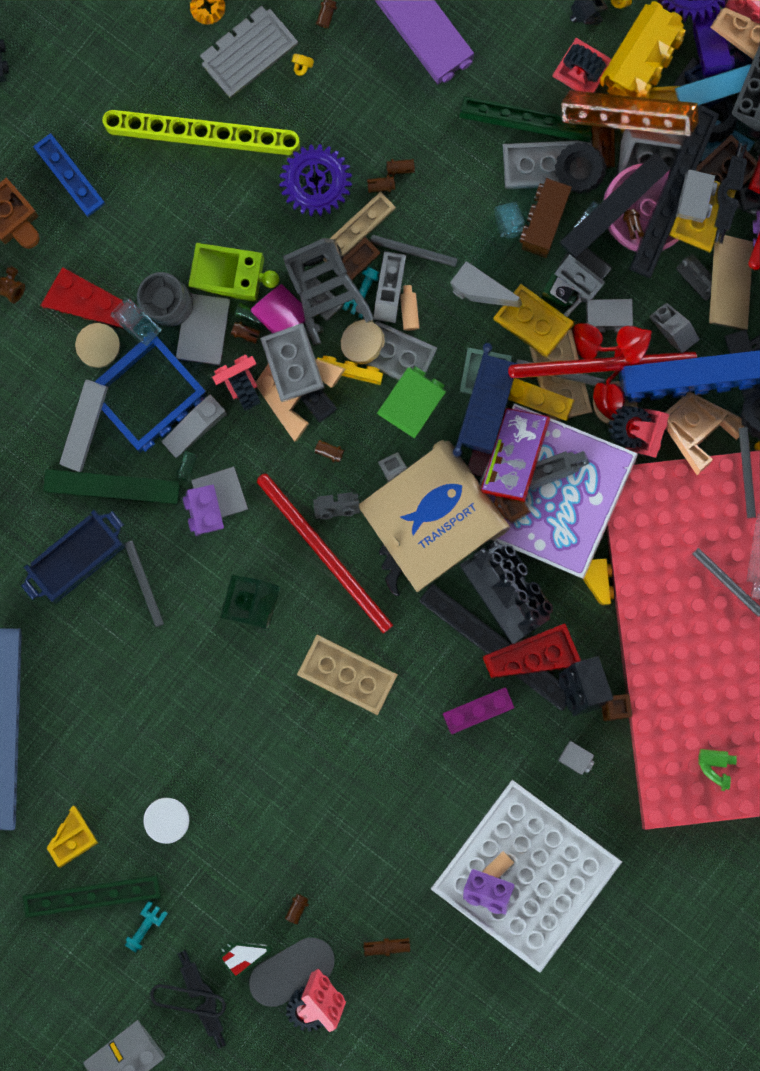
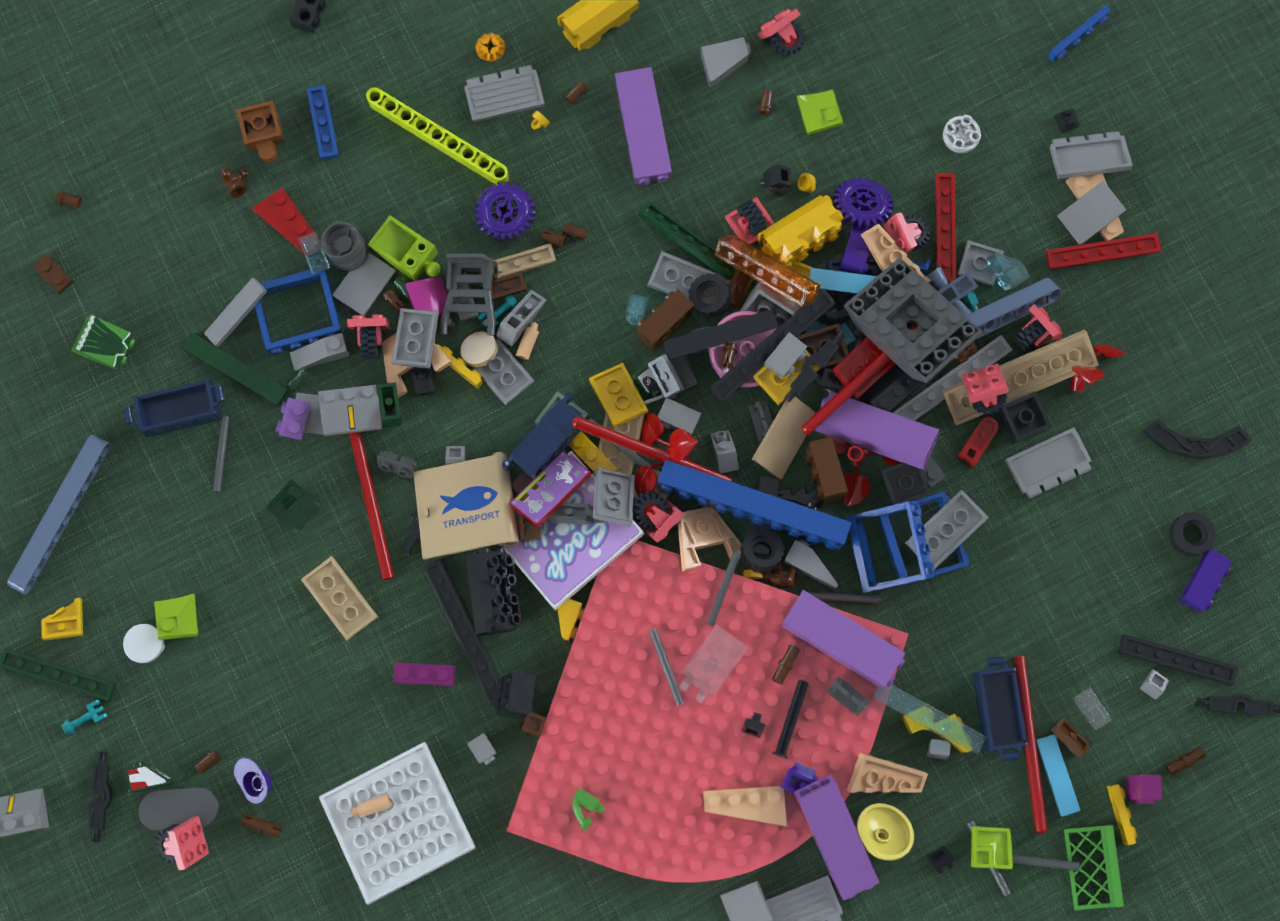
camera: 25 degrees right, 5 degrees down
(97, 345) = (279, 258): tan tile -> none
(187, 777) = (176, 618): none -> lime plate
(188, 991) = (92, 785): black piece -> none
(260, 472) = (349, 410): none -> light grey slope
(298, 447) = (389, 405): none -> dark green slope
(329, 451) = (412, 420): reddish brown pin -> none
(355, 905) = (252, 780): none -> piece
(412, 250) = (552, 298): dark grey bar -> none
(412, 401) = (492, 411): bright green slope -> none
(481, 288) = (588, 350): light grey slope -> none
(488, 892) = (358, 819): medium lavender bracket -> none
(539, 653) = (490, 651): red wing -> none
(587, 431) = (613, 497): none -> light grey tile

